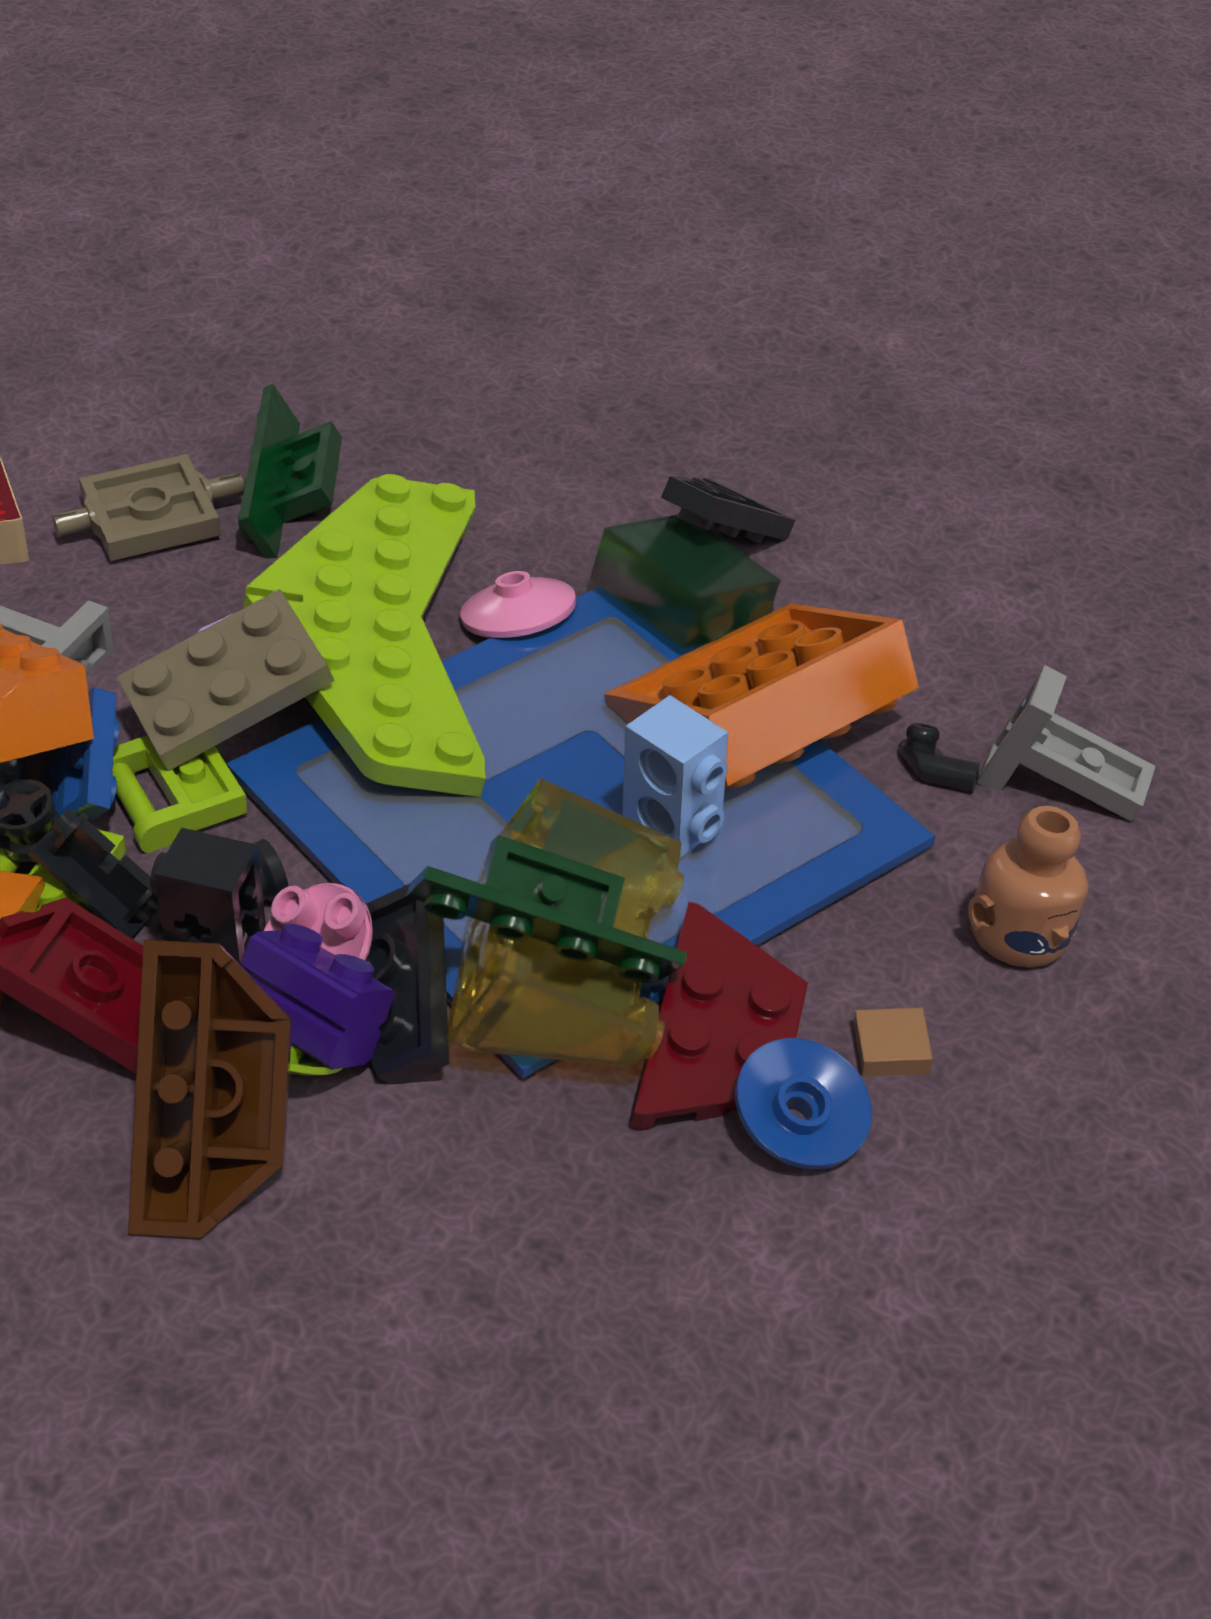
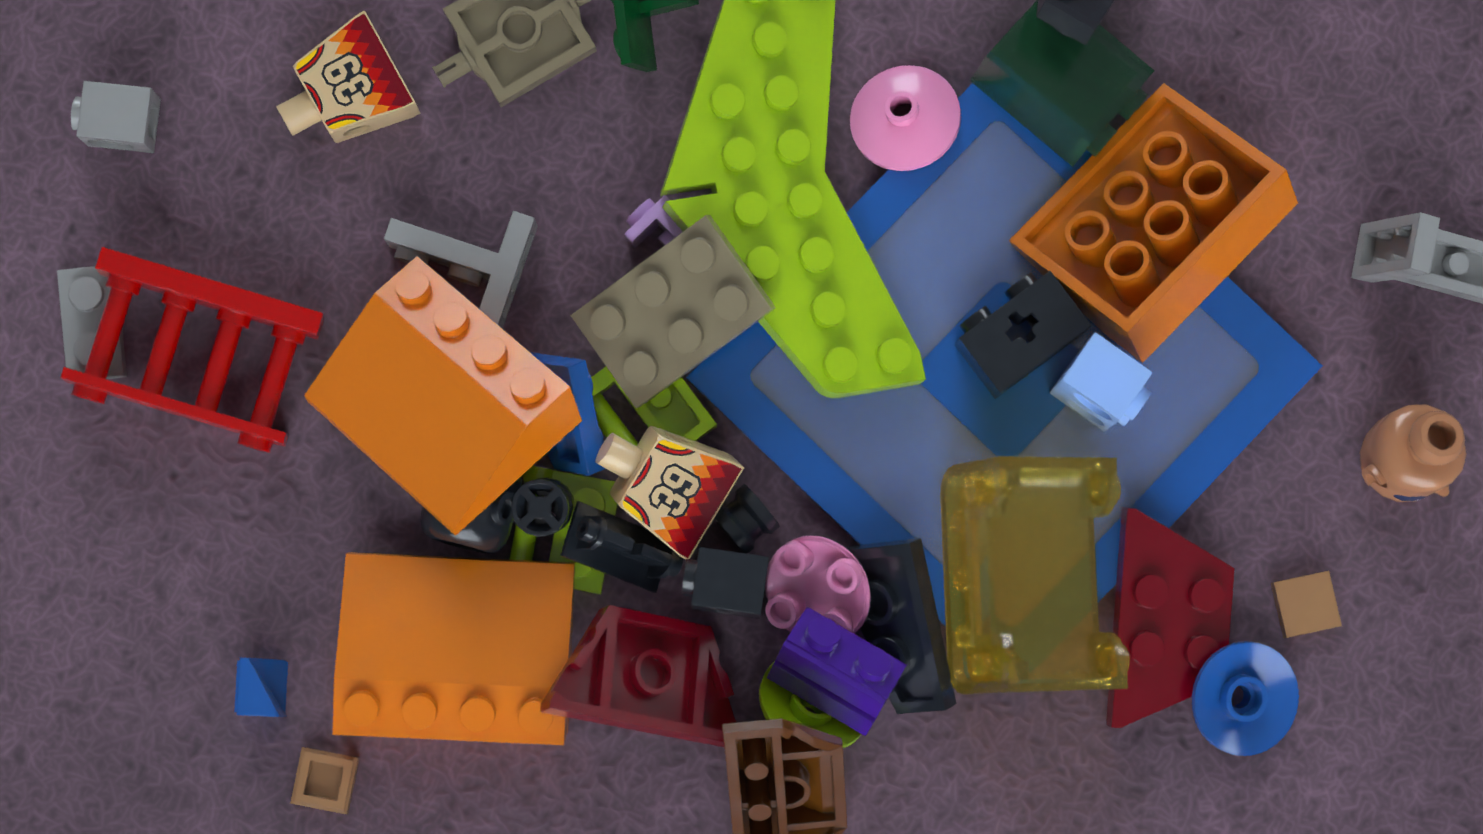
camera: 10 degrees left, 40 degrees up
(169, 796) = (670, 484): none -> torso
(550, 900) = (1021, 569): dark green bracket -> none
(585, 746) = (1004, 362): none -> black brick
(932, 765) = (1309, 266): black arm -> none

